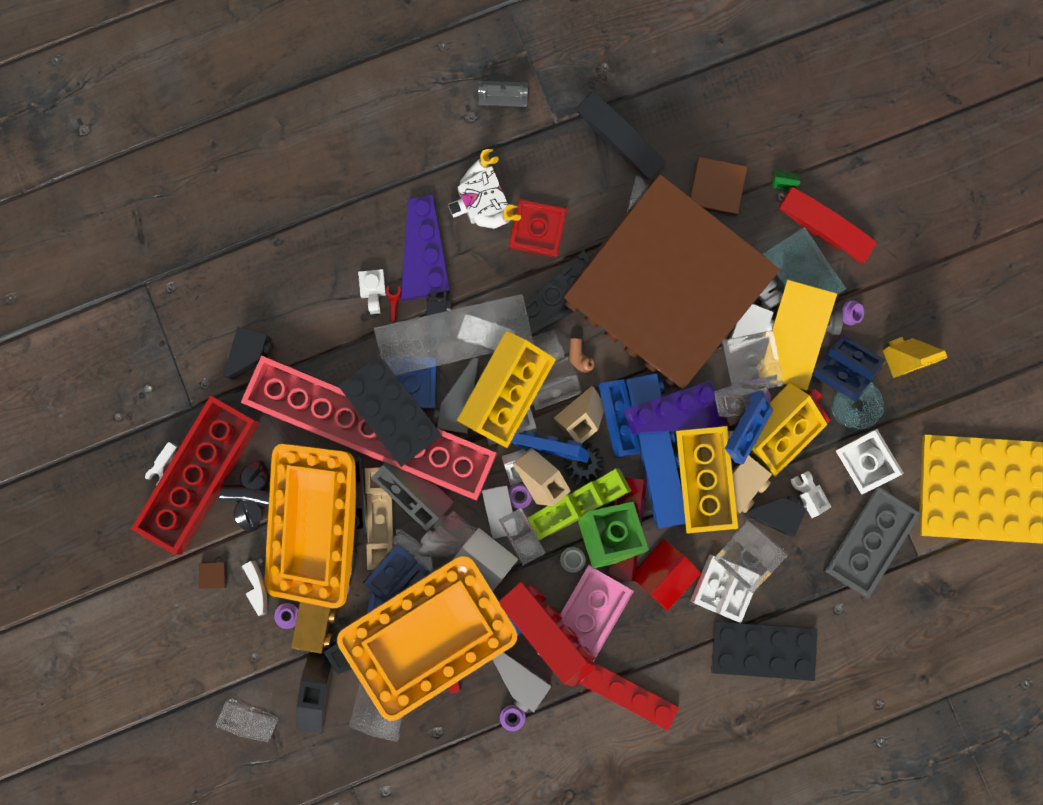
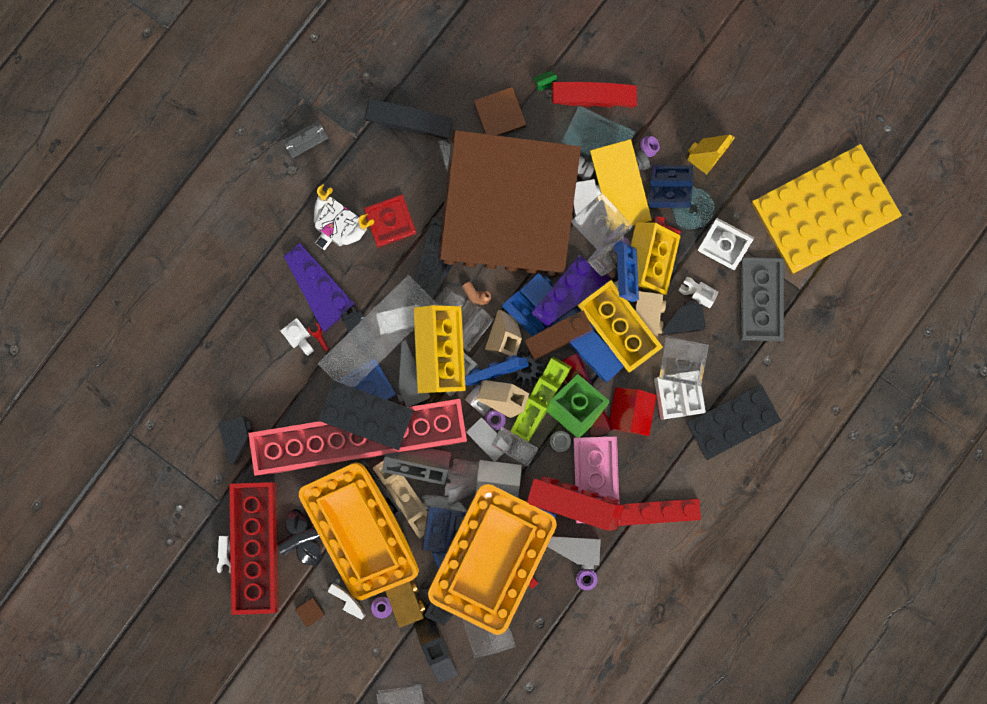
camera: 30 degrees left, 0 degrees up
(638, 450) = (559, 335): none -> reddish brown slope

